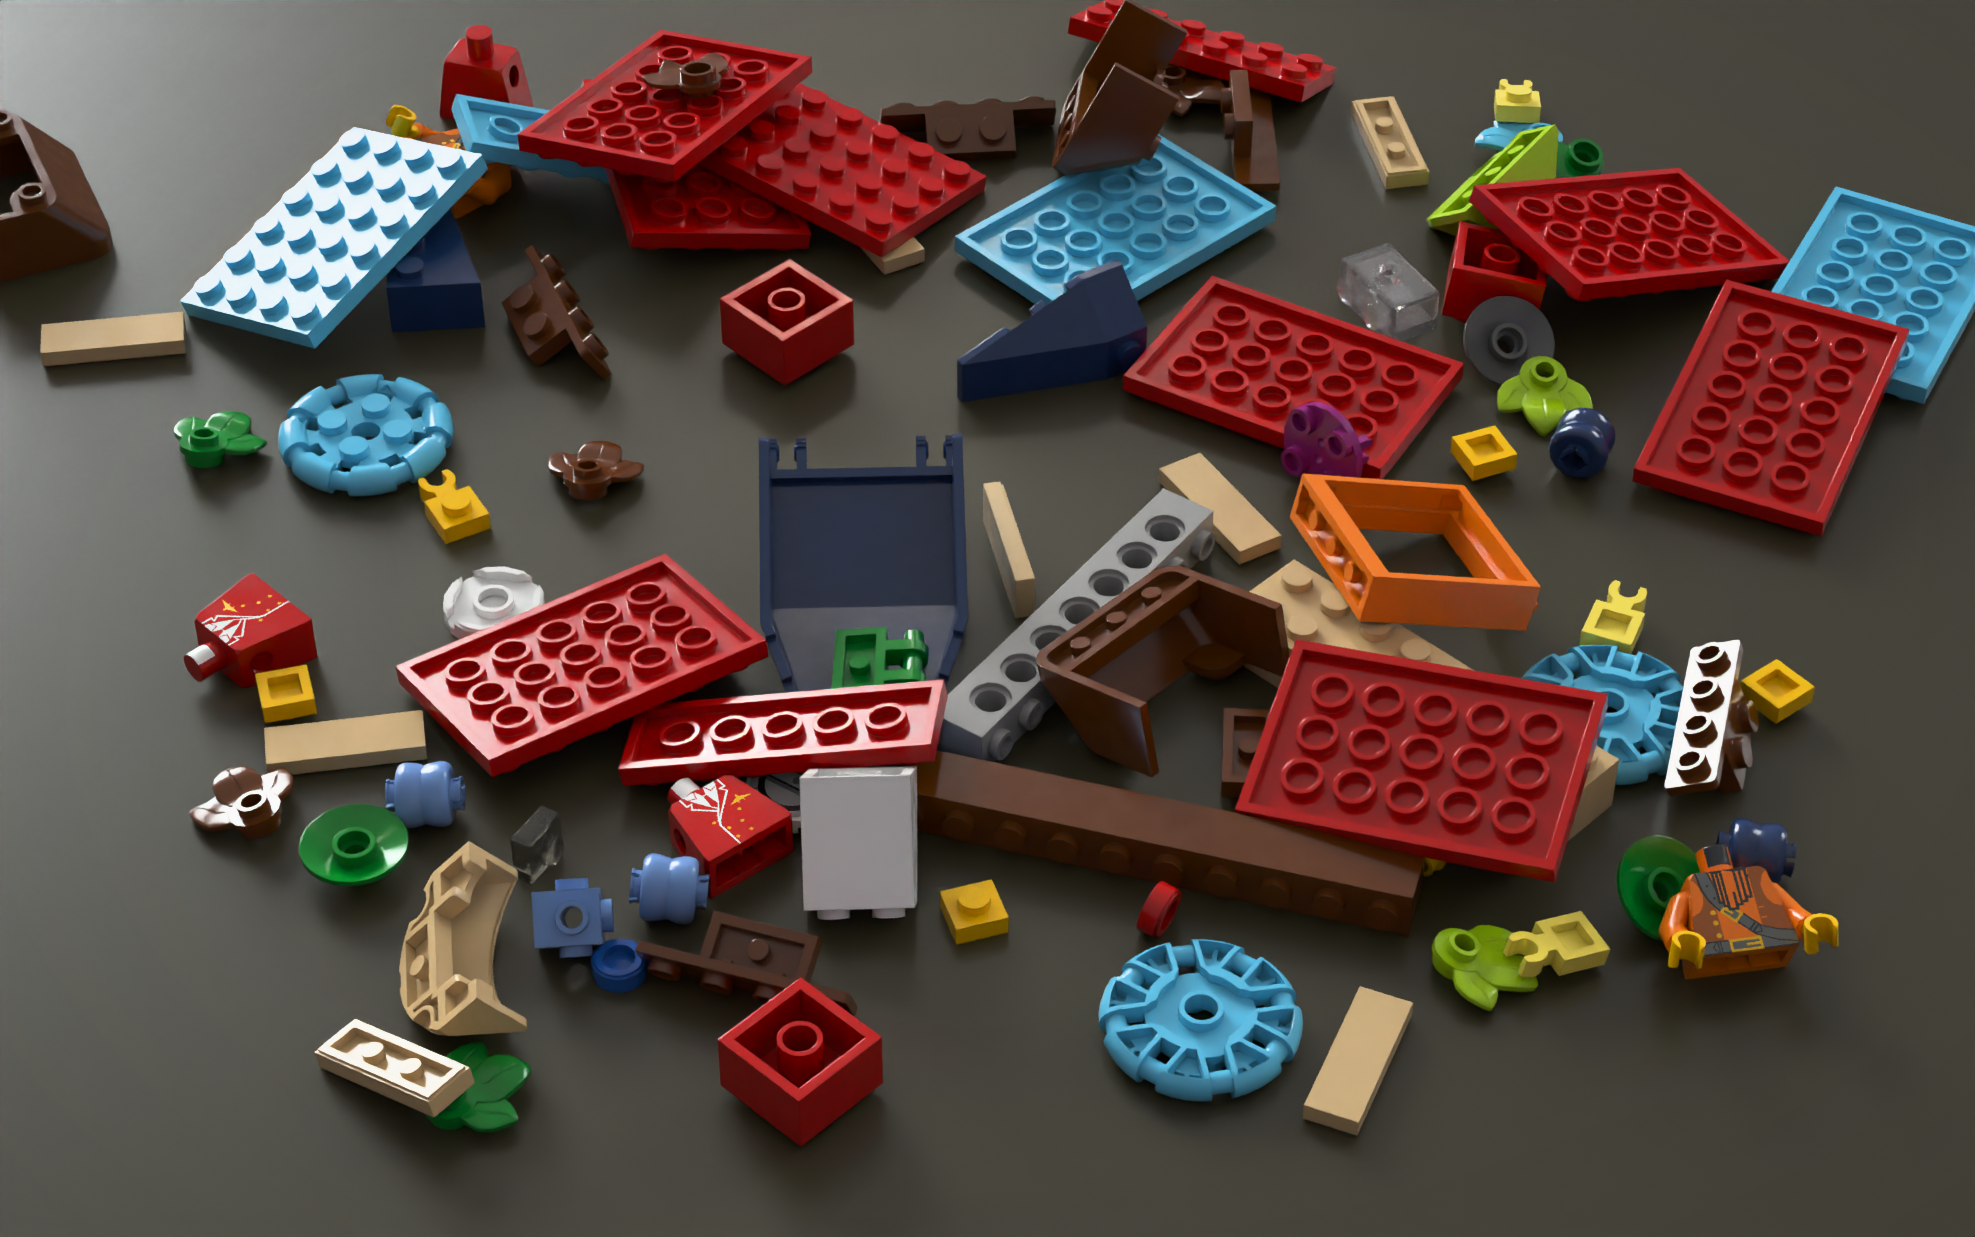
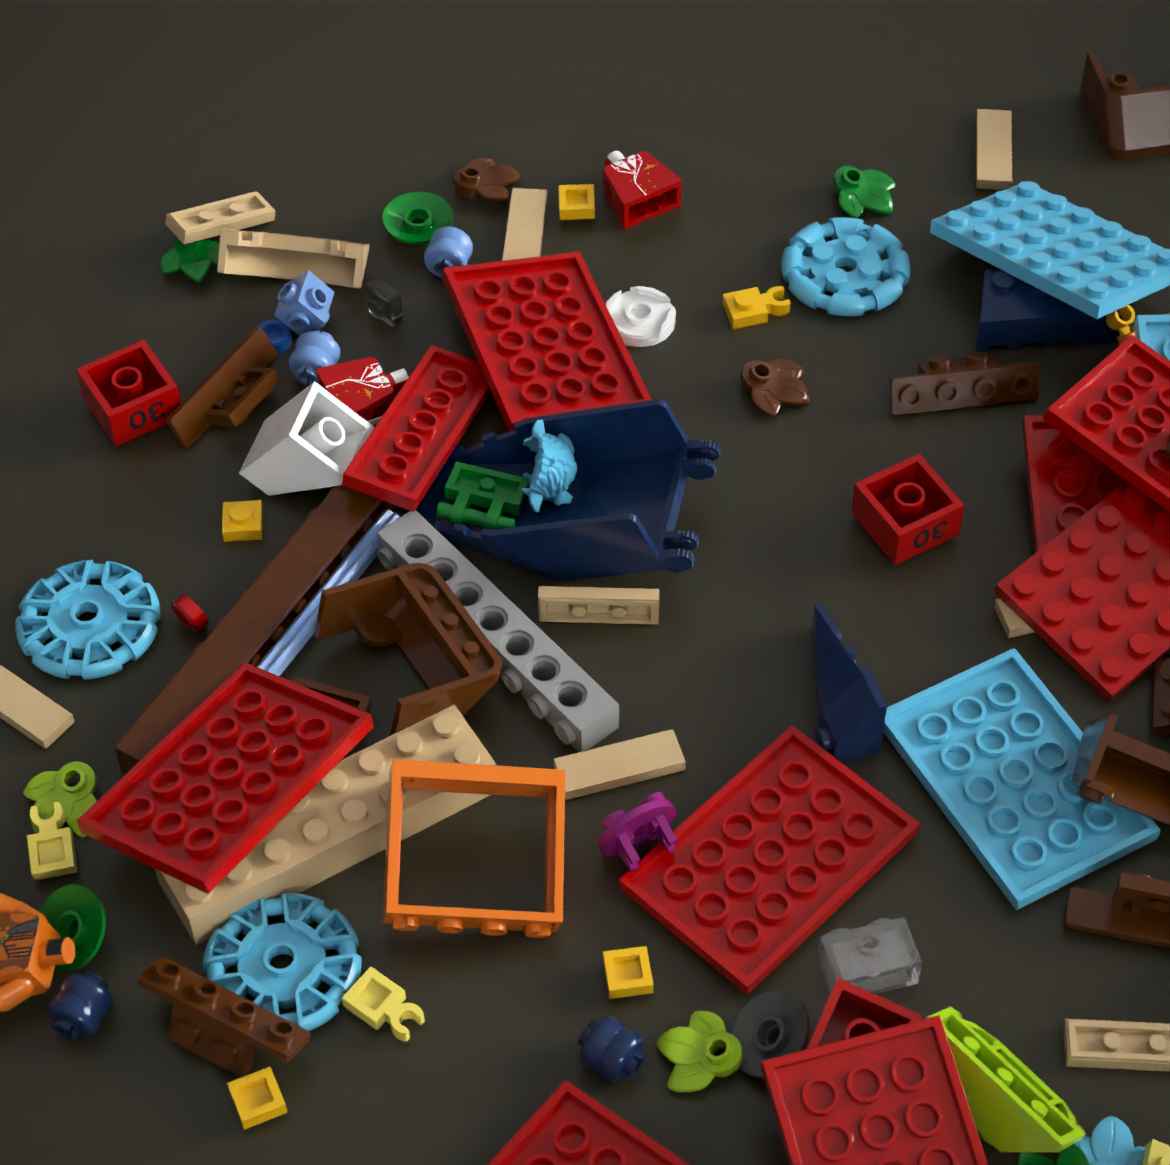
camera: 105 degrees right, 10 degrees up
(827, 599) = (553, 467): none -> medium azure hair

